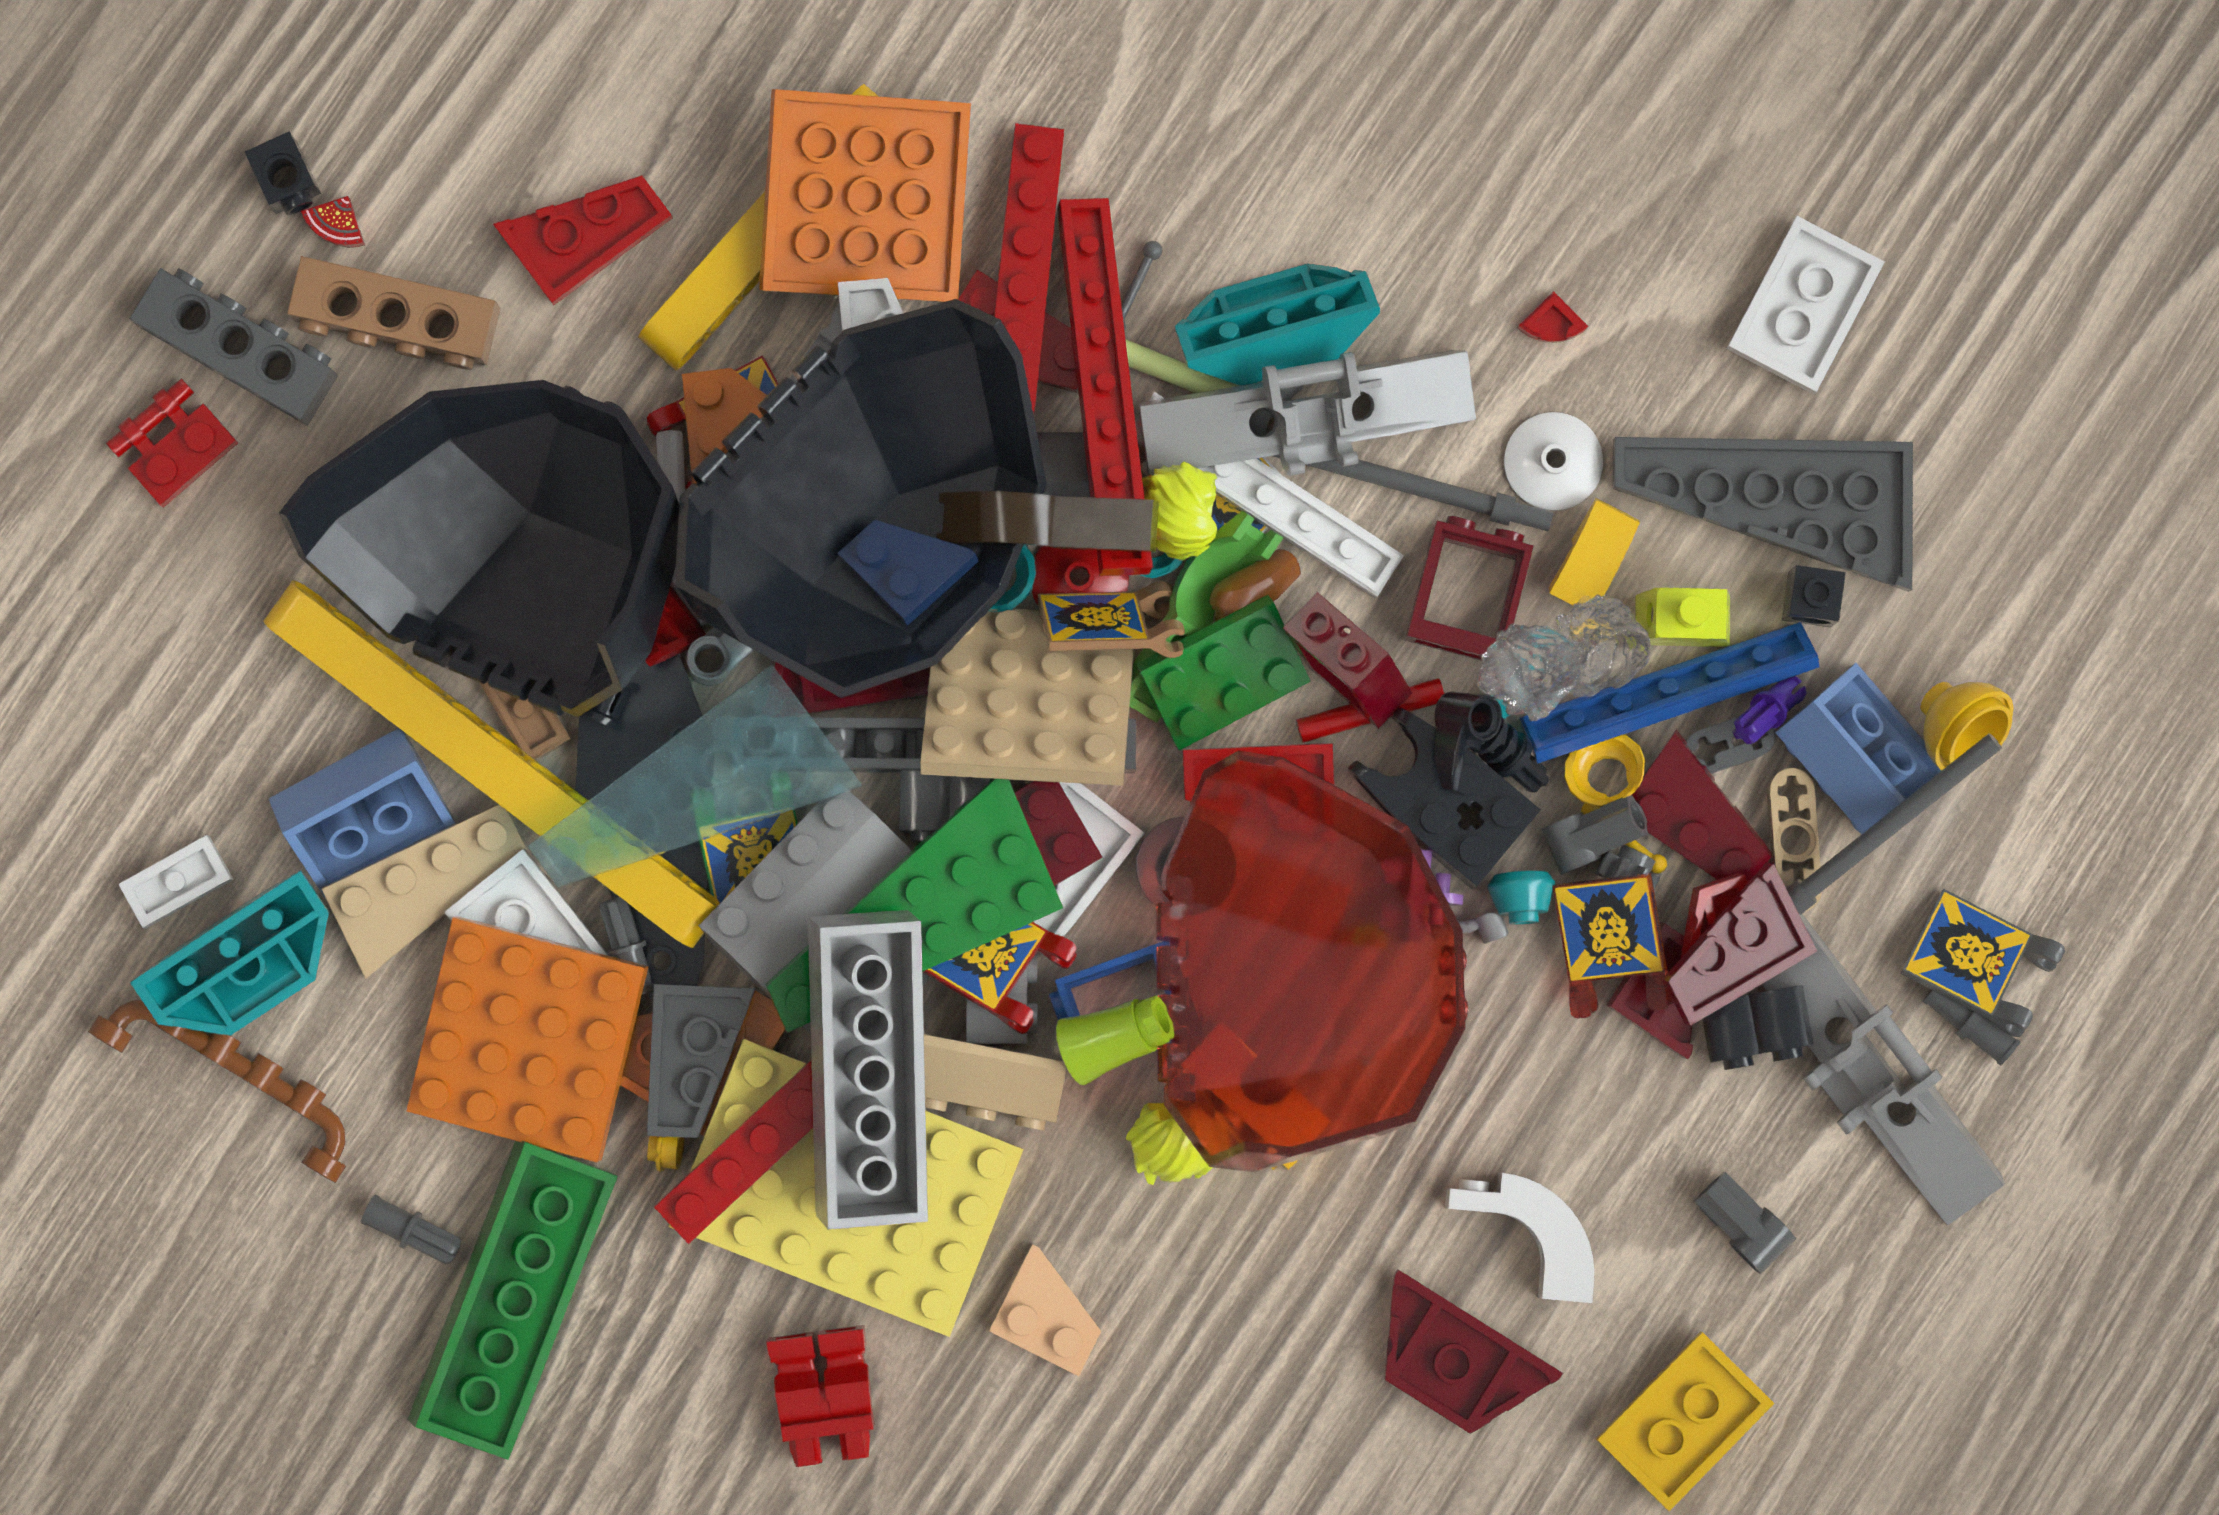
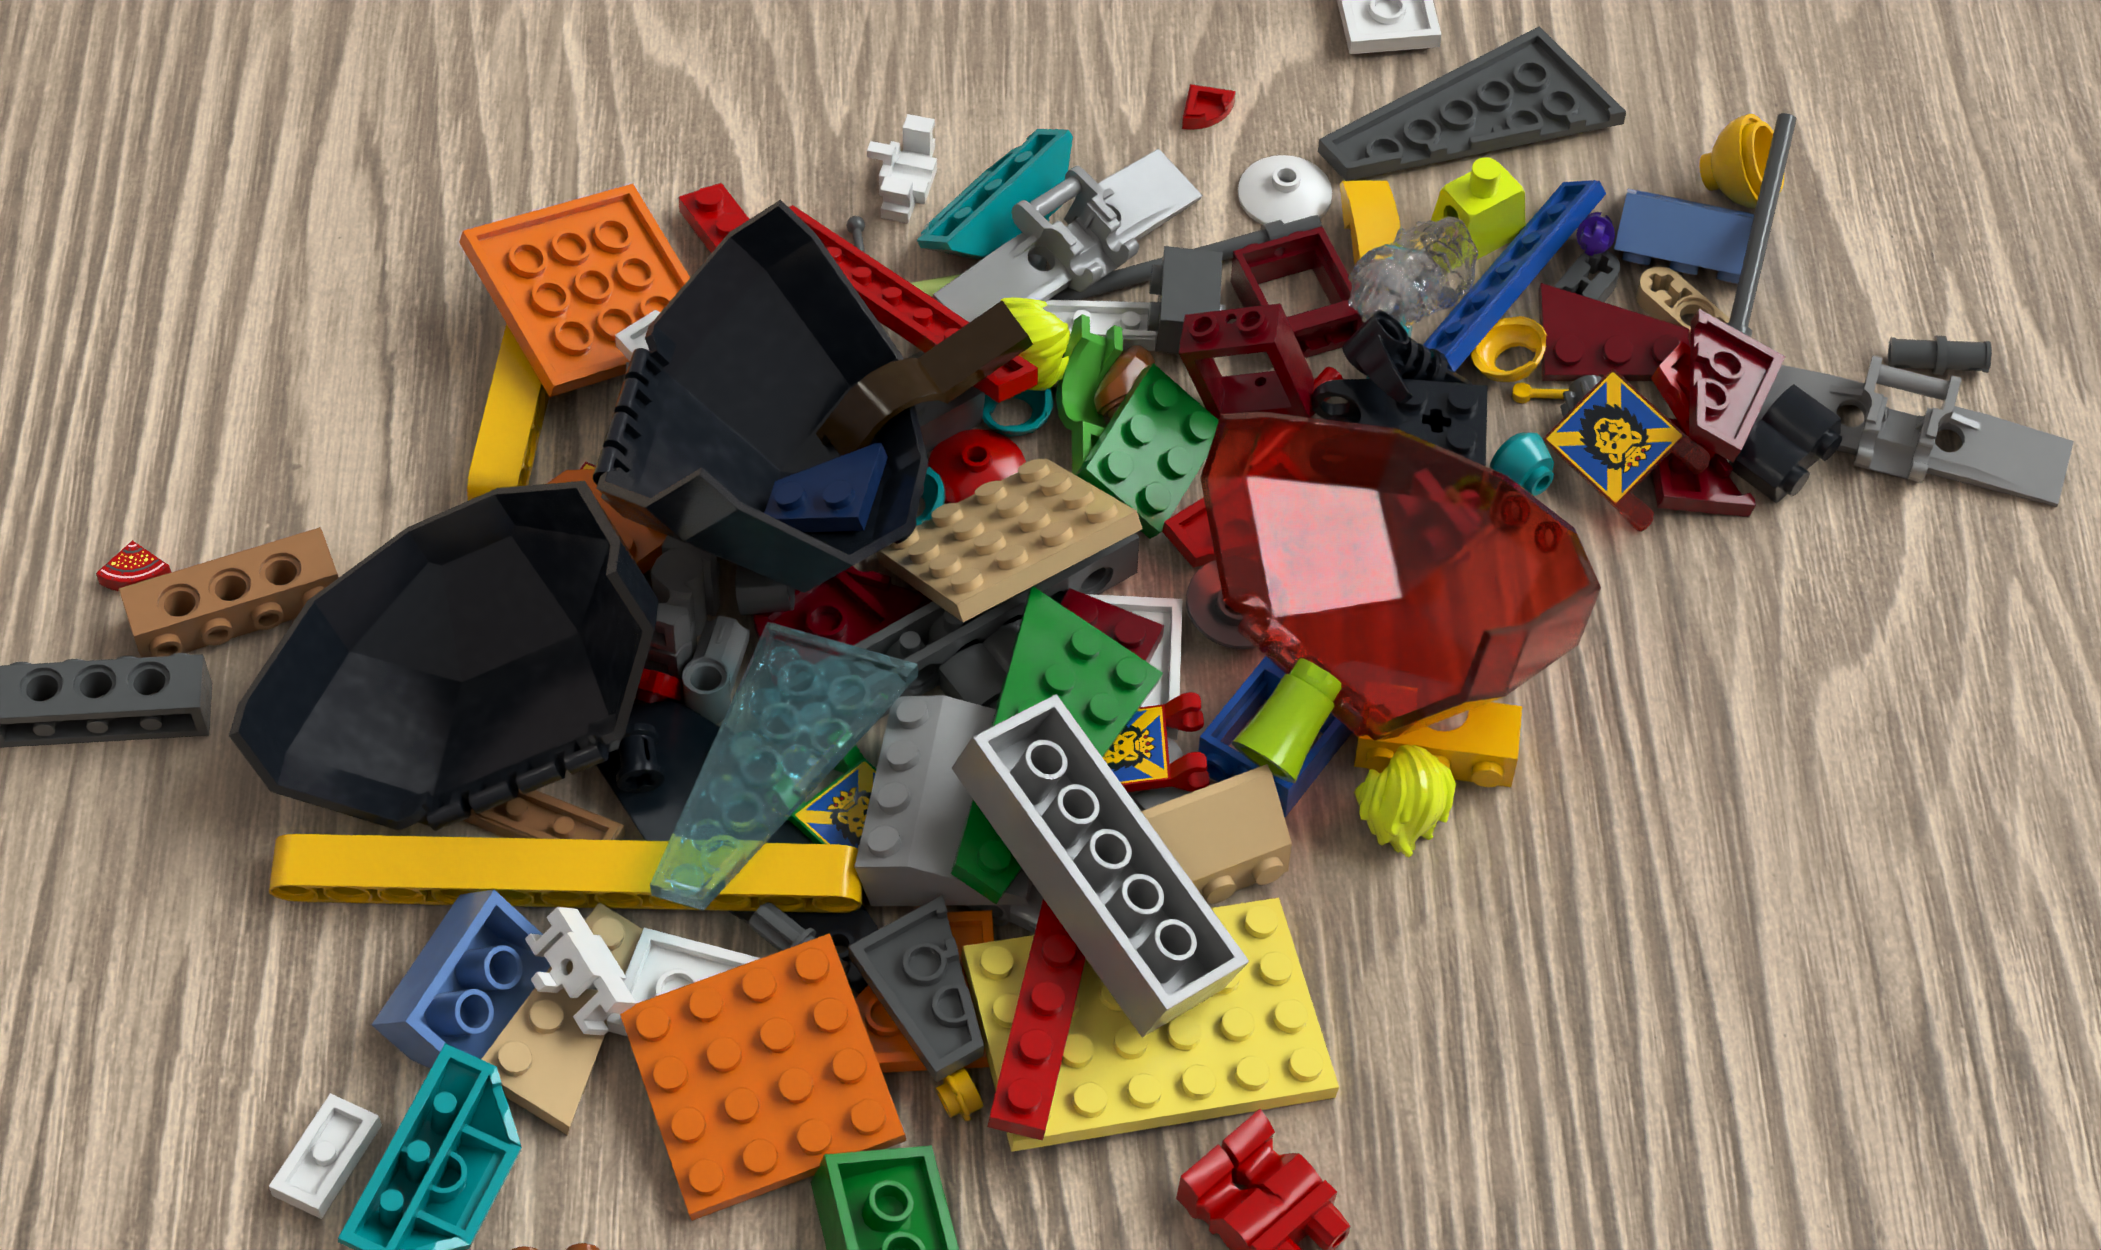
camera: 30 degrees left, 30 degrees down
(179, 456) = (102, 816): red plate -> none
(268, 159) = (60, 552): black brick -> none
(454, 865) = (593, 969): none -> white piece
(583, 236) = (368, 460): red wing -> none
(1046, 1316) = (1409, 1021): light nougat wing -> none
(1110, 621) = (1044, 446): flag -> none
(1234, 222) = (906, 173): none -> white piece
(1359, 546) = (1184, 285): none -> dark grey brick
(1456, 1359) = (1777, 830): dark red wing -> none
(1560, 1238) = (1758, 680): white arch -> none
(1585, 837) = (1536, 401): dark grey piece -> none
(1684, 1421) = (2002, 760): yellow plate -> none
(1753, 1231) = (1923, 589): dark grey piece -> none
(1813, 596) = (1558, 152): black brick -> none
(1973, 958) = (1908, 309): flag -> none

